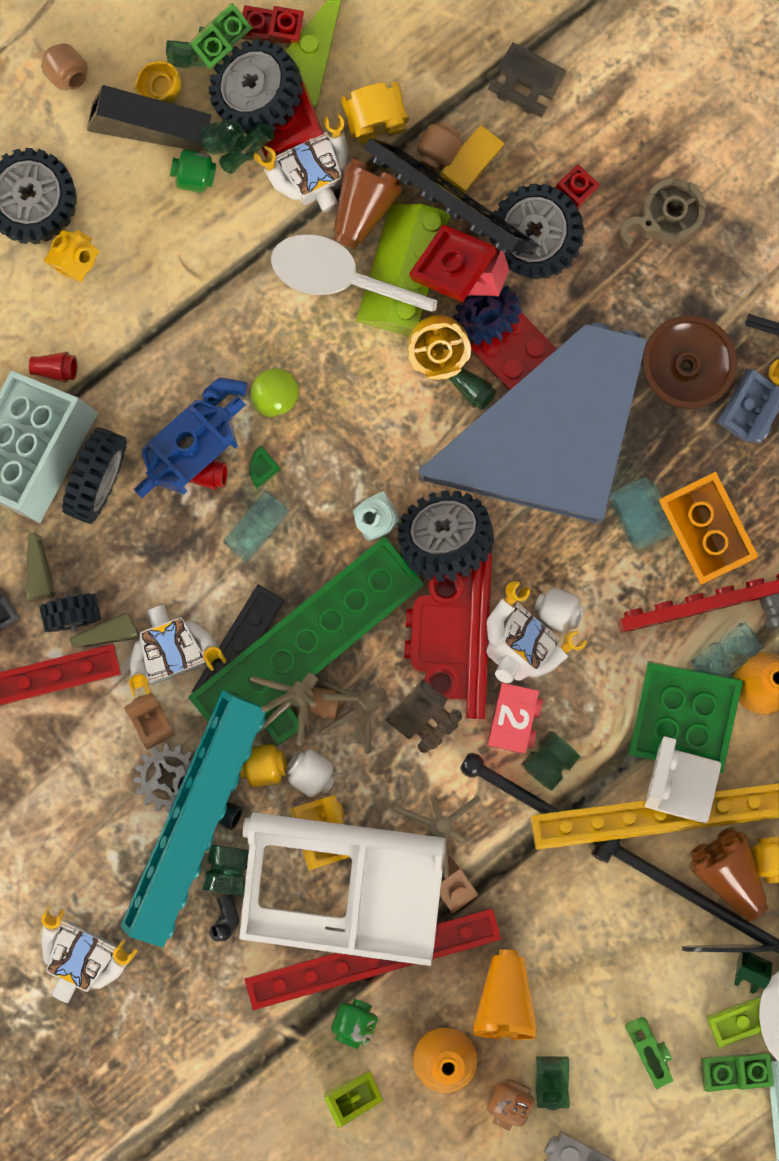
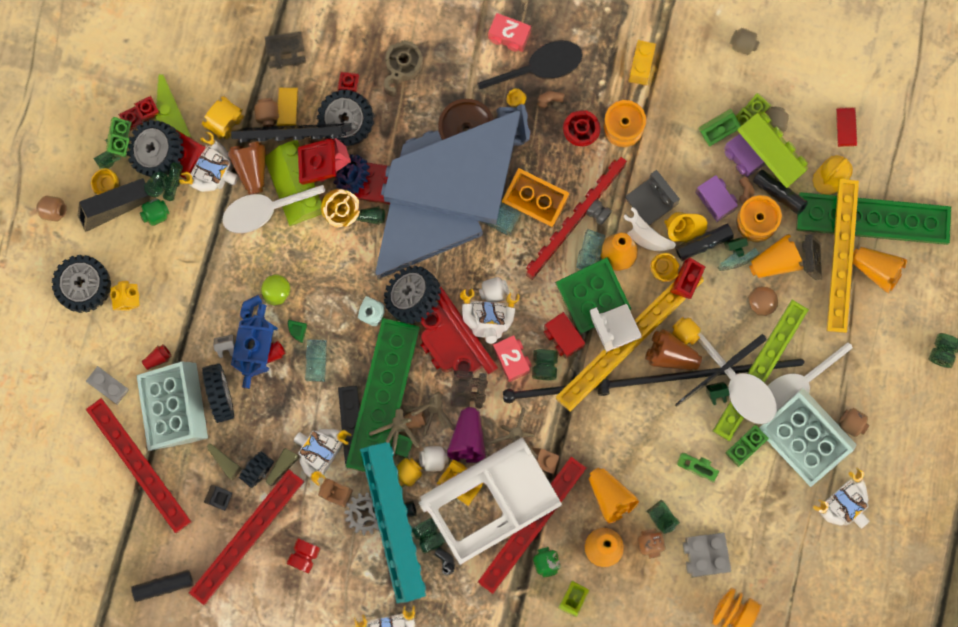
camera: 30 degrees left, 5 degrees down
(49, 770) = (302, 557): none -> red wheel
(153, 413) = (224, 343): none -> light grey tile
(376, 780) = (467, 438): none -> magenta cone
(605, 740) = (563, 335): none -> red brick
(628, 418) = (457, 175): none -> sand blue slope

